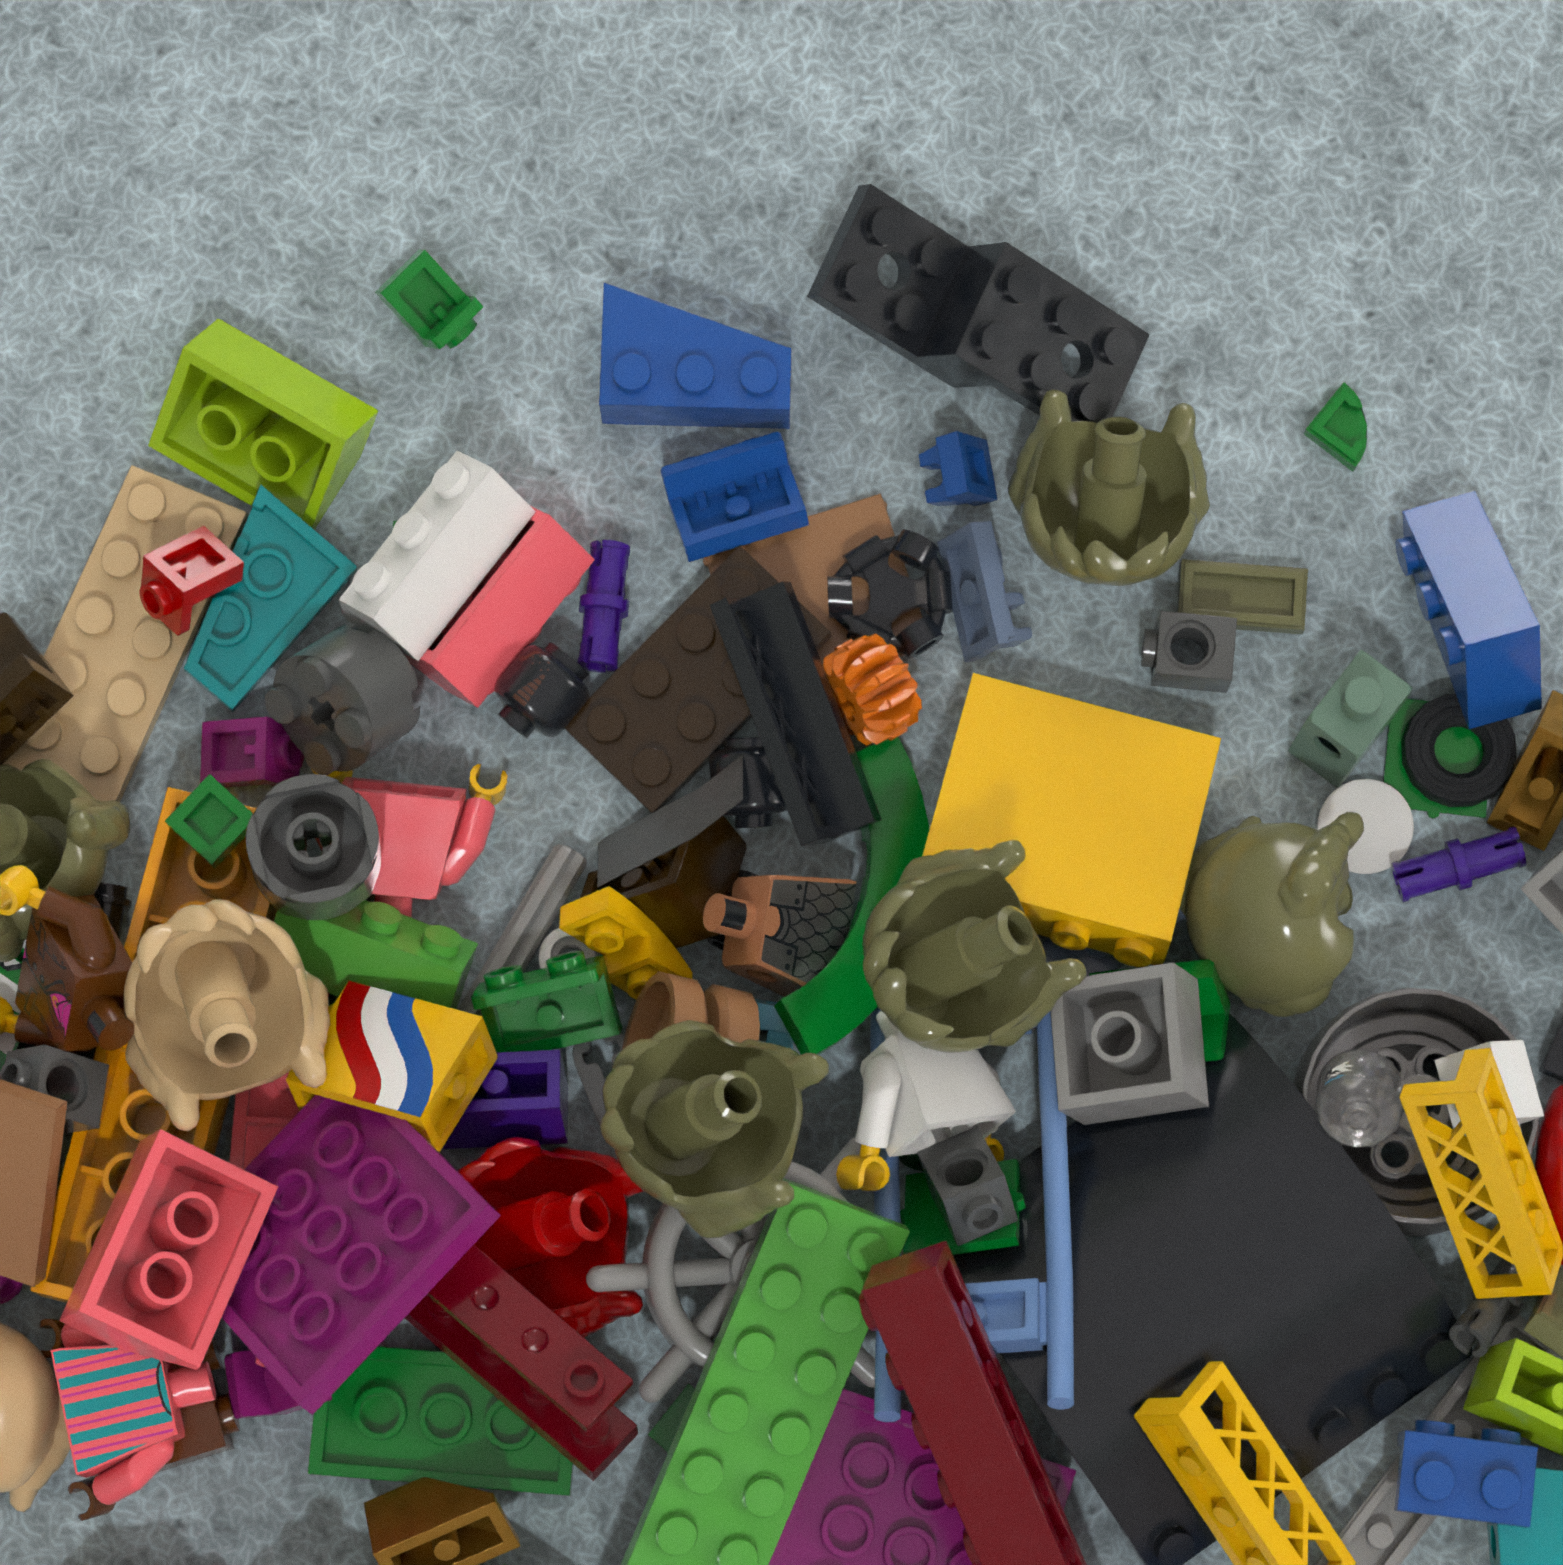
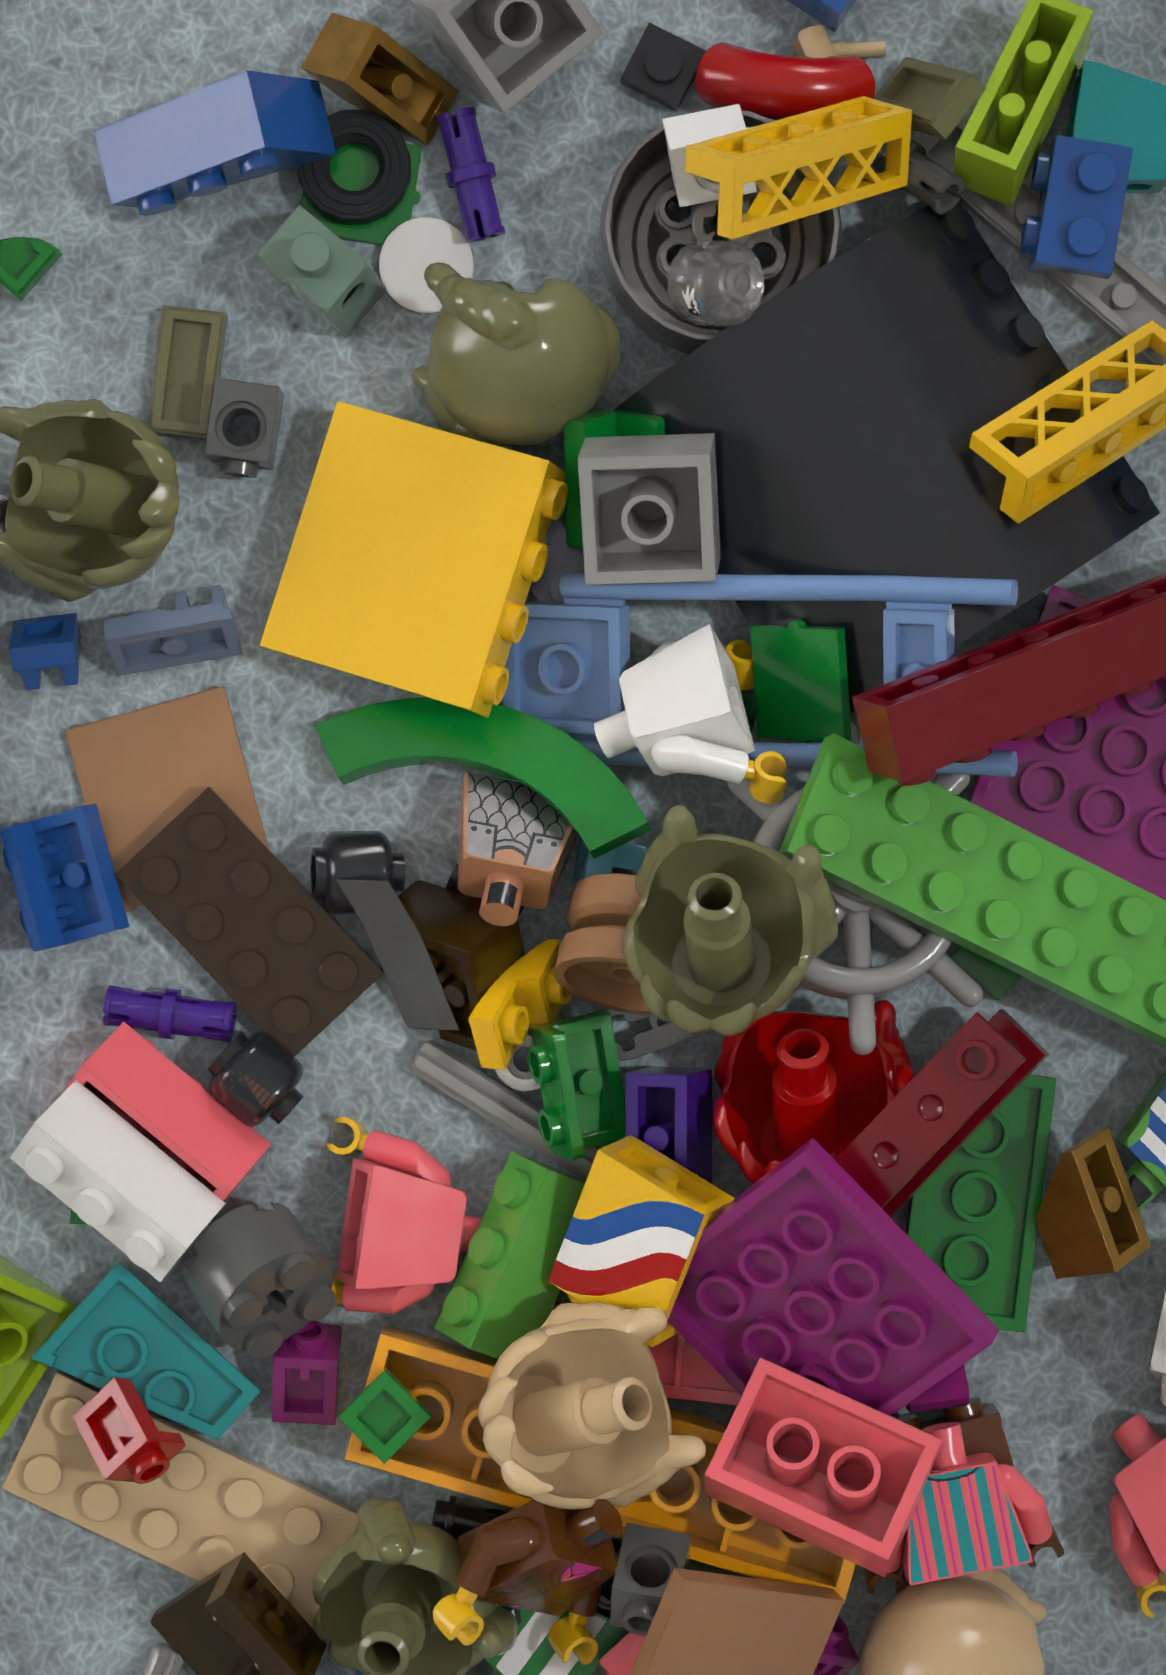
camera: 85 degrees left, 10 degrees up
(278, 854) = (400, 1345): dark grey brick -> none
(796, 714) = (296, 825): black fence -> none
(872, 689) = (271, 748): orange gear -> none
(892, 592) = (171, 723): black piece -> none
(958, 954) = (559, 671): olive piece -> none
(967, 1186) = (783, 674): dark grey brick -> none

